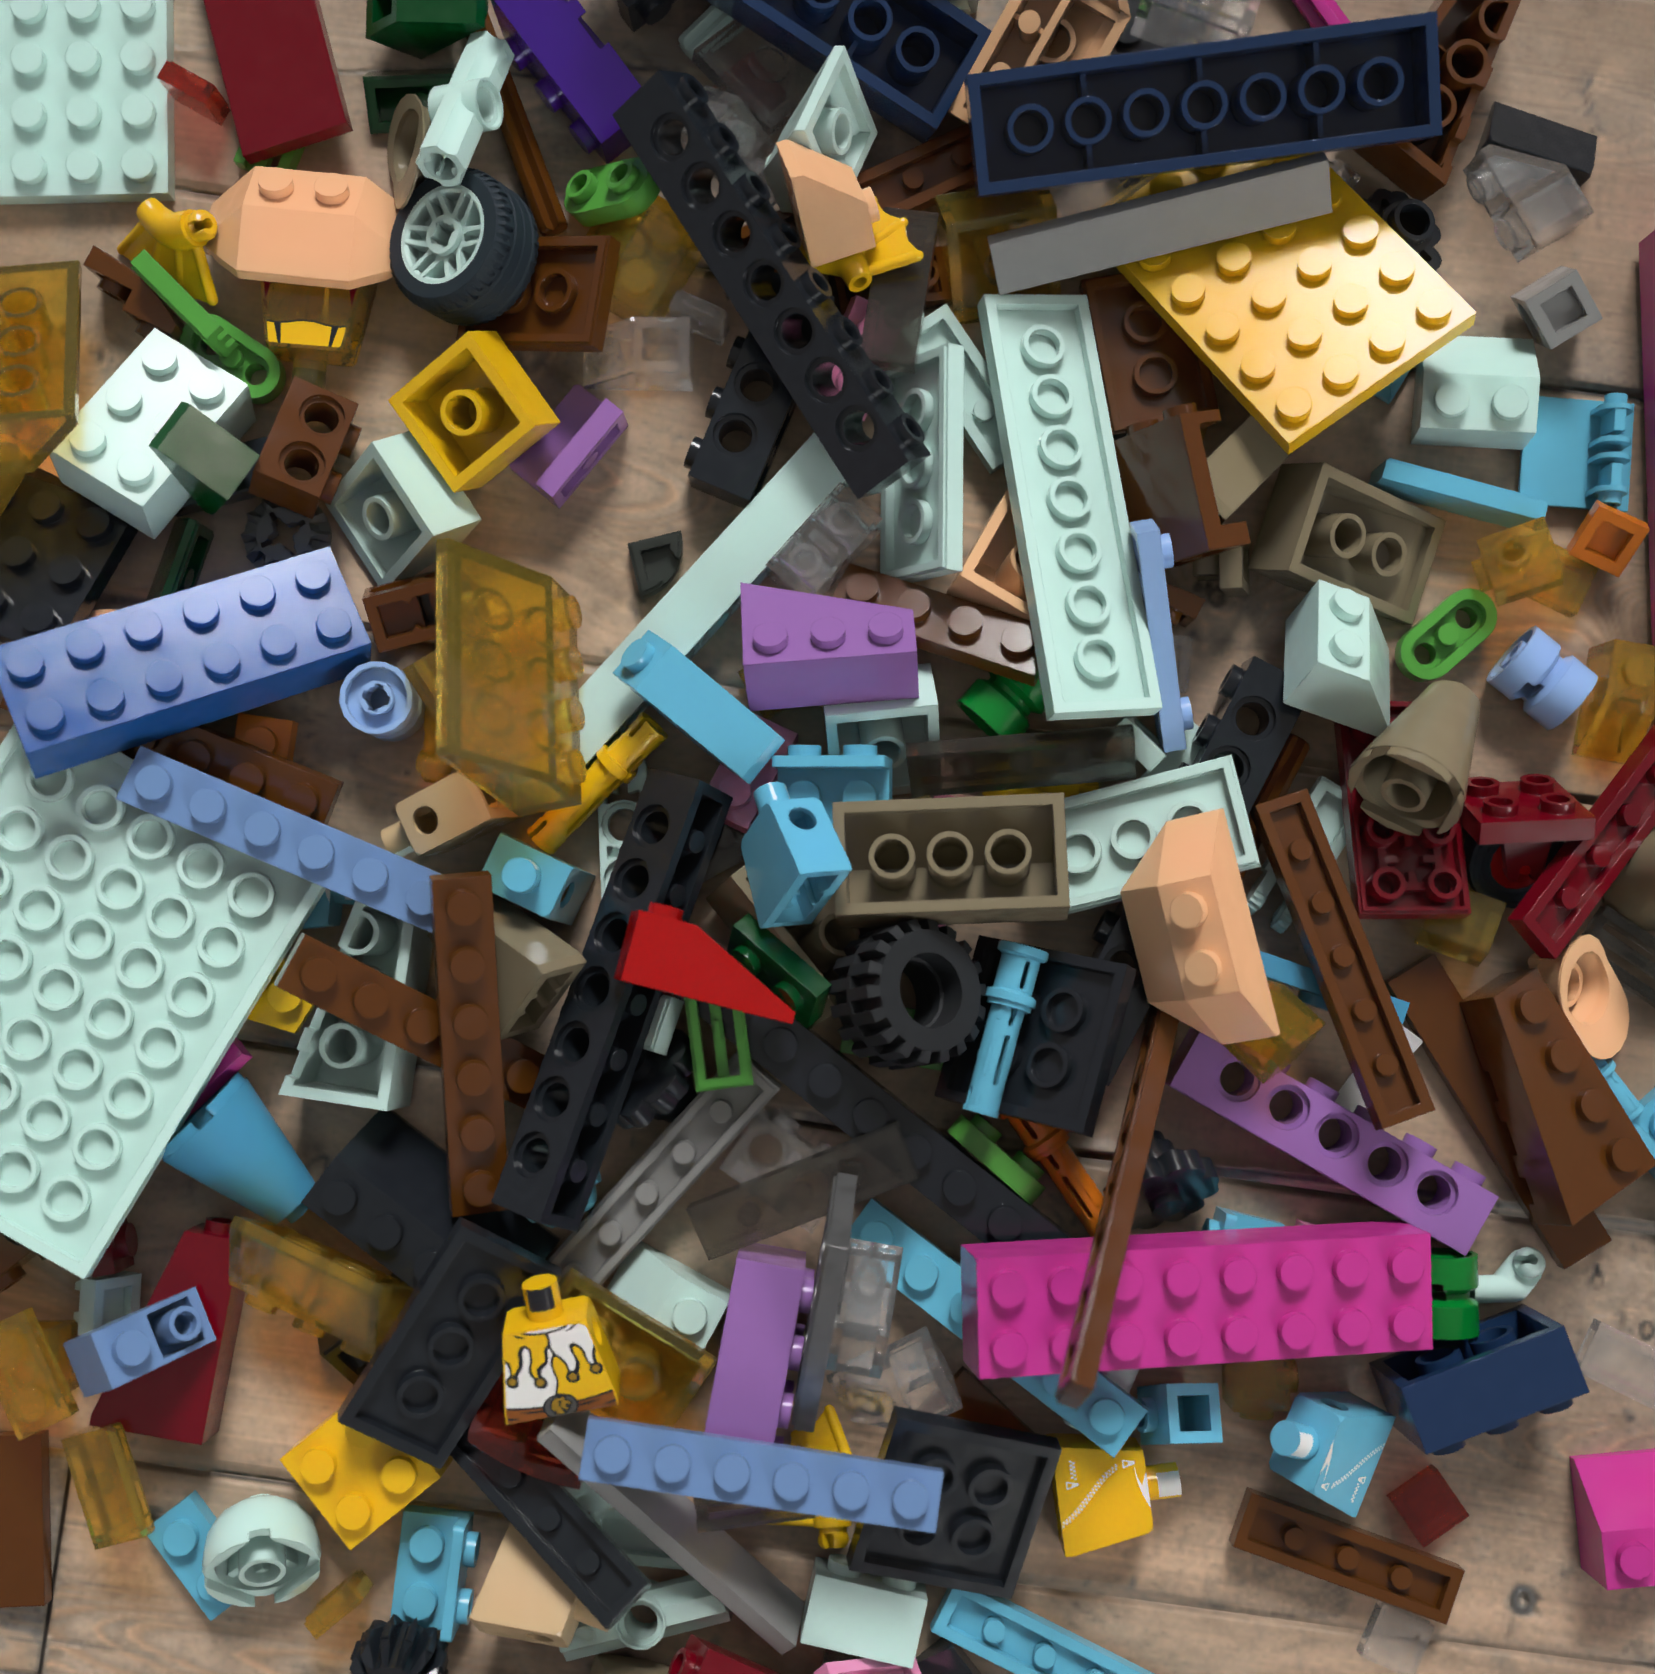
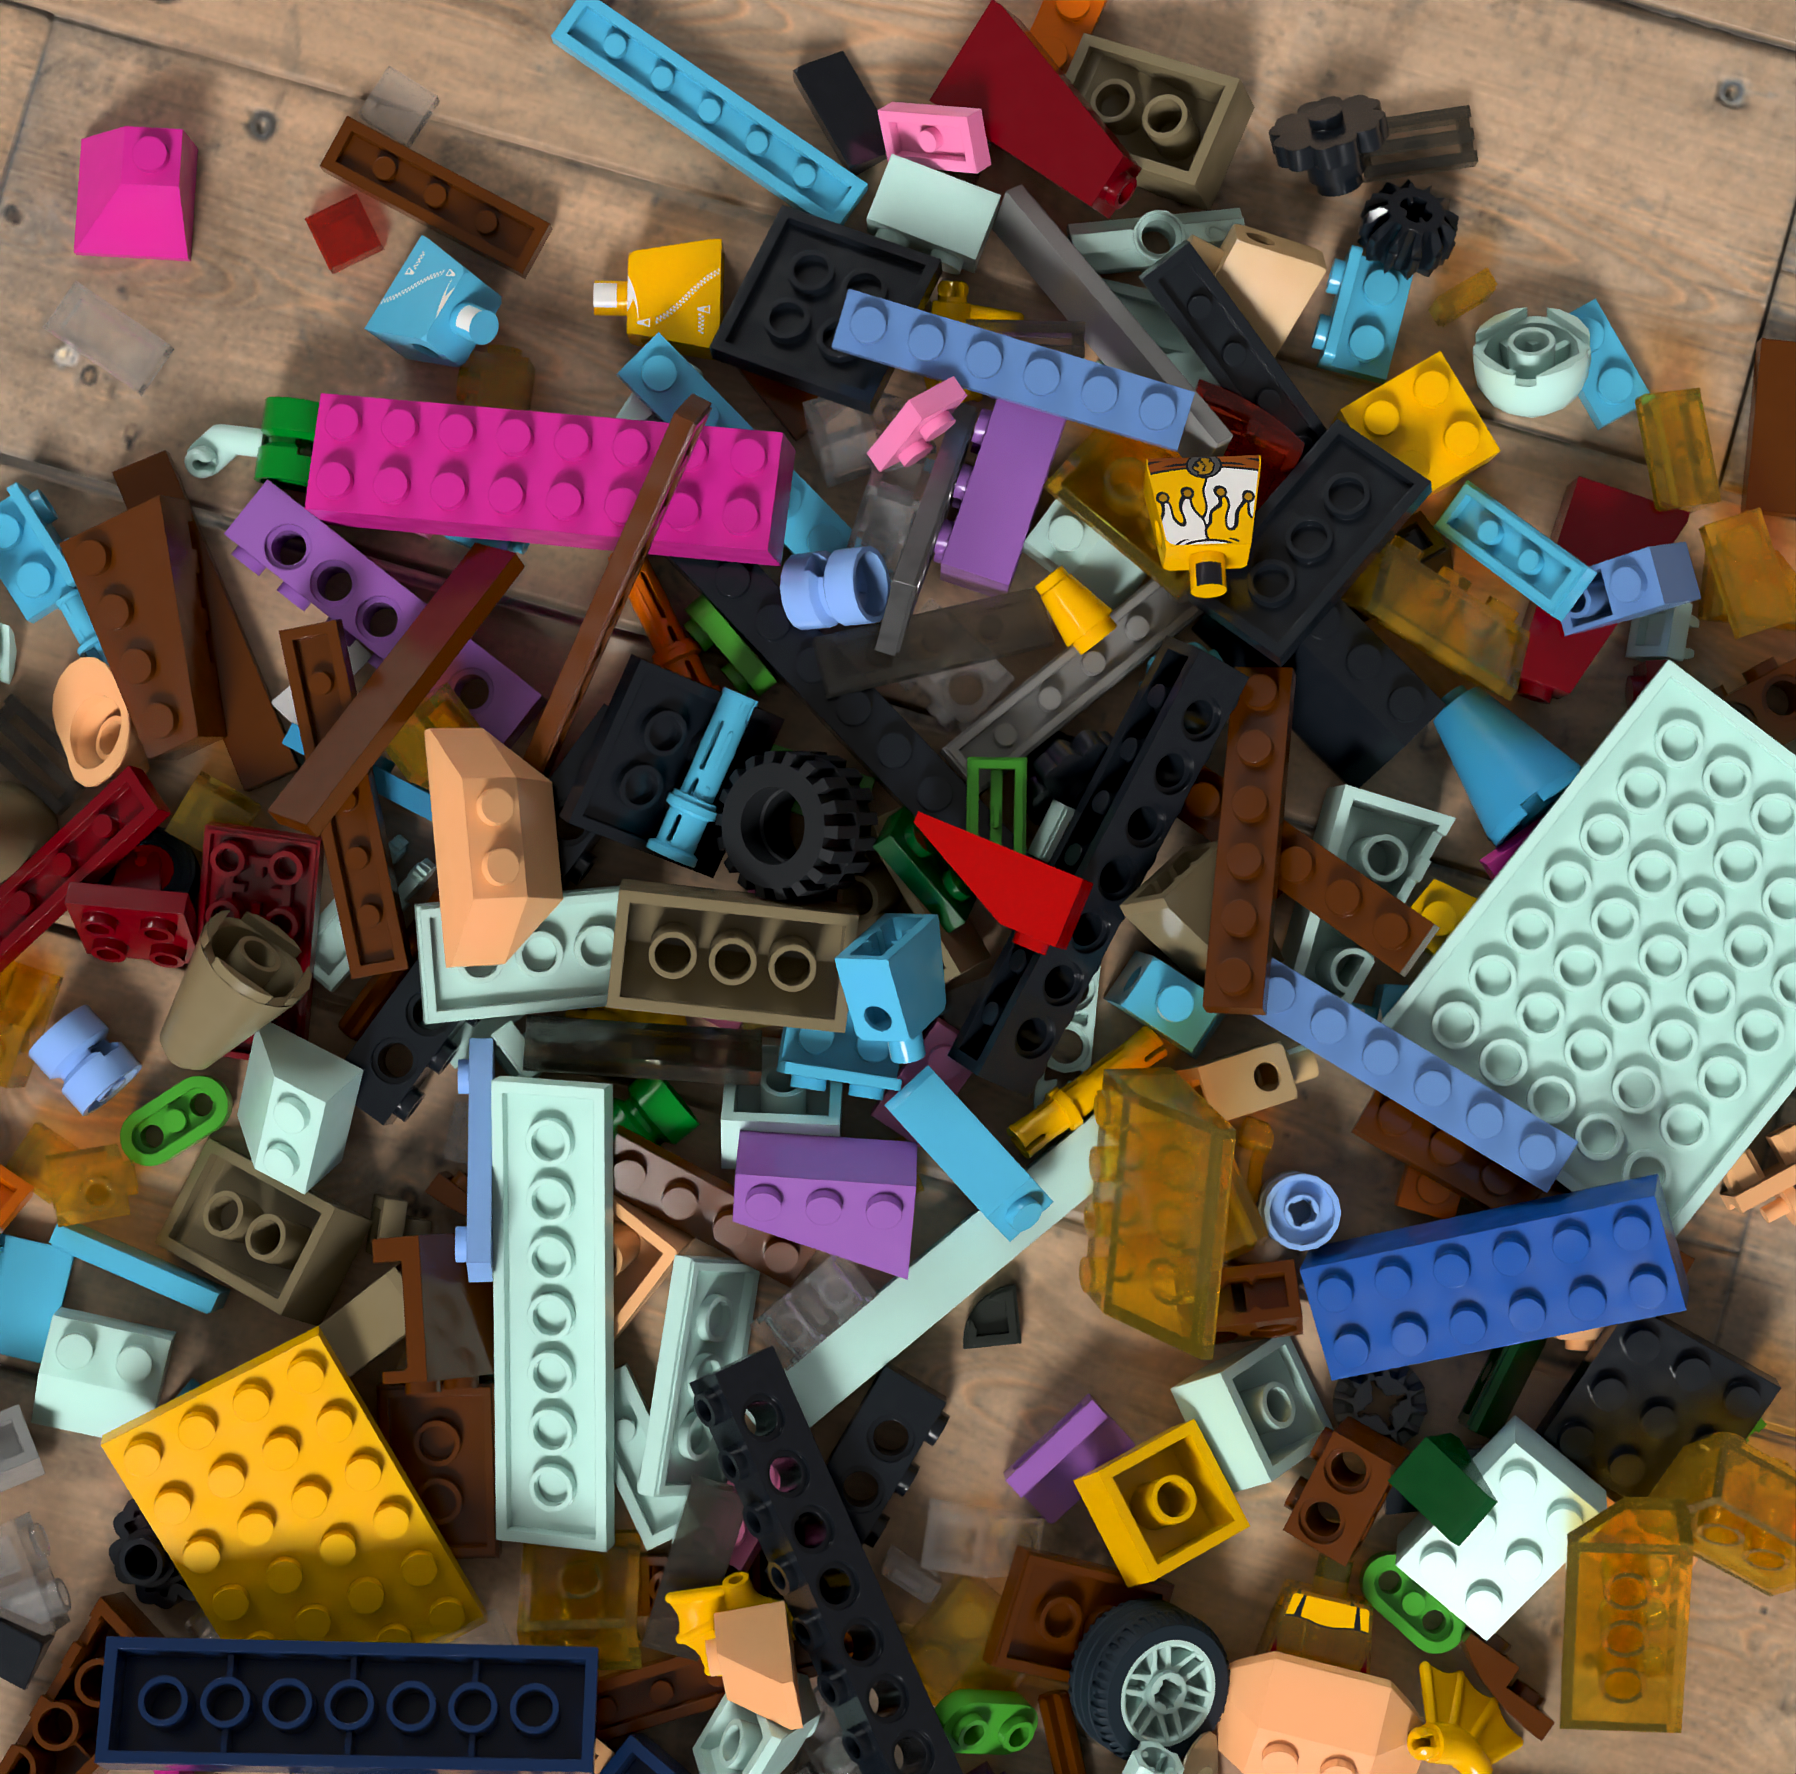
camera: 165 degrees left, 0 degrees up
(183, 304) = (1453, 1662): bright green tile -> none
(252, 1362) = (1515, 550): none -> medium azure tile
(670, 1242) = (1075, 610): none -> yellow cone
(848, 1406) = (917, 424): none -> bright pink plate
(904, 1230) = (835, 587): none -> light blue wheel
(1162, 223) = (410, 1595): light grey tile -> none
(1172, 1184) = (557, 594): black plant -> none
(1180, 1414) = (583, 363): medium azure brick -> none
(1313, 1068) = (396, 689): none -> reddish brown tile
(1480, 1383) = (275, 352): dark blue brick -> none

